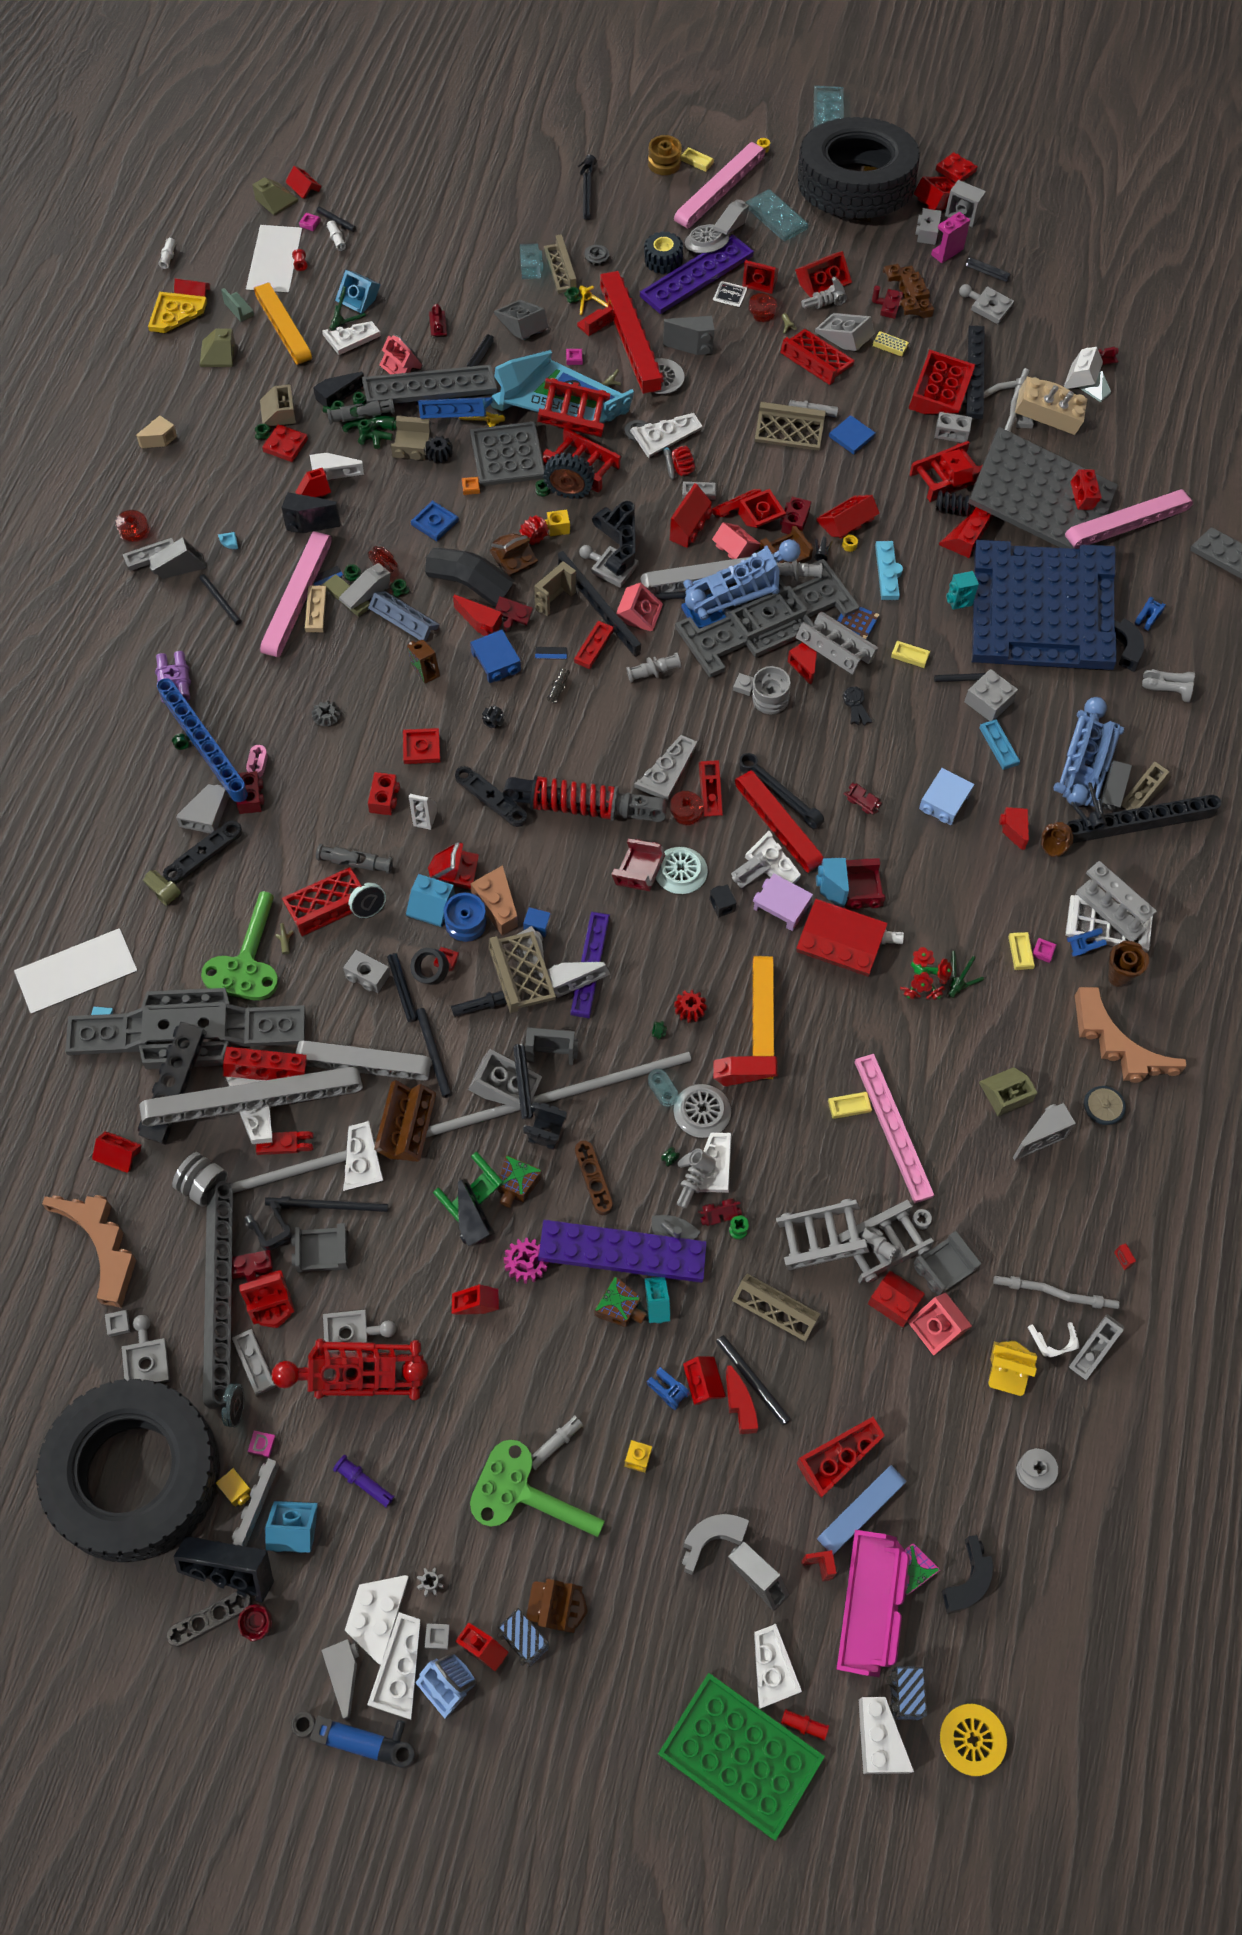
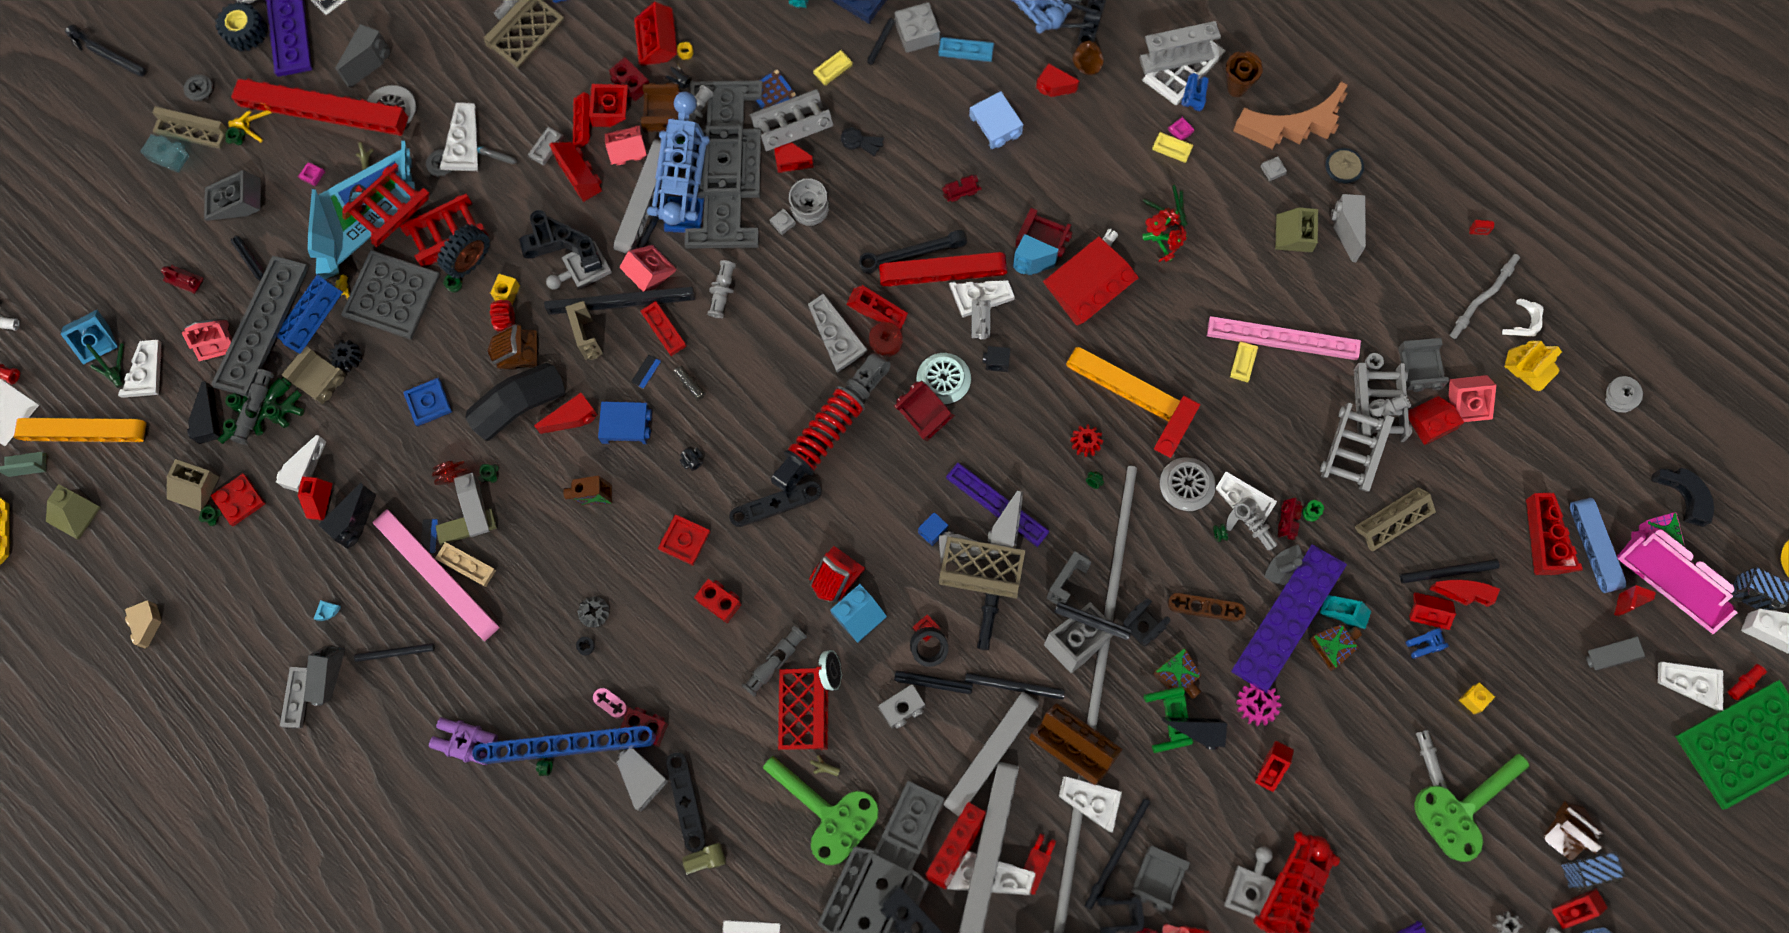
camera: 55 degrees left, 10 degrees up
(132, 525) = (257, 700): clear red piece -> none
(294, 716) = (583, 640): none -> black bush
(352, 572) = (439, 505): dark green plate -> none
(402, 615) = (524, 486): sand blue fence -> none
(423, 811) = (762, 572): white slope -> none
(465, 917) = (897, 578): blue wheel -> none
(470, 485) = (407, 347): orange tile -> none
(498, 902) = (891, 552): nougat wedge -> none
(513, 612) = (583, 381): dark red plate -> none
(596, 320) = (280, 132): red panel -> none
(664, 1088) = (1151, 505): clear light blue plate -> none
(683, 461) = (506, 141): red gear -> none
(715, 1527) = (1563, 675): light grey arch -> none
(783, 900) = (1025, 309): lavender panel -> none
(888, 570) = (733, 35): medium azure hinge -> none
(1059, 1045) = (1273, 168): none -> light grey plate
(1096, 1346) = (1545, 291): light grey slope -> none

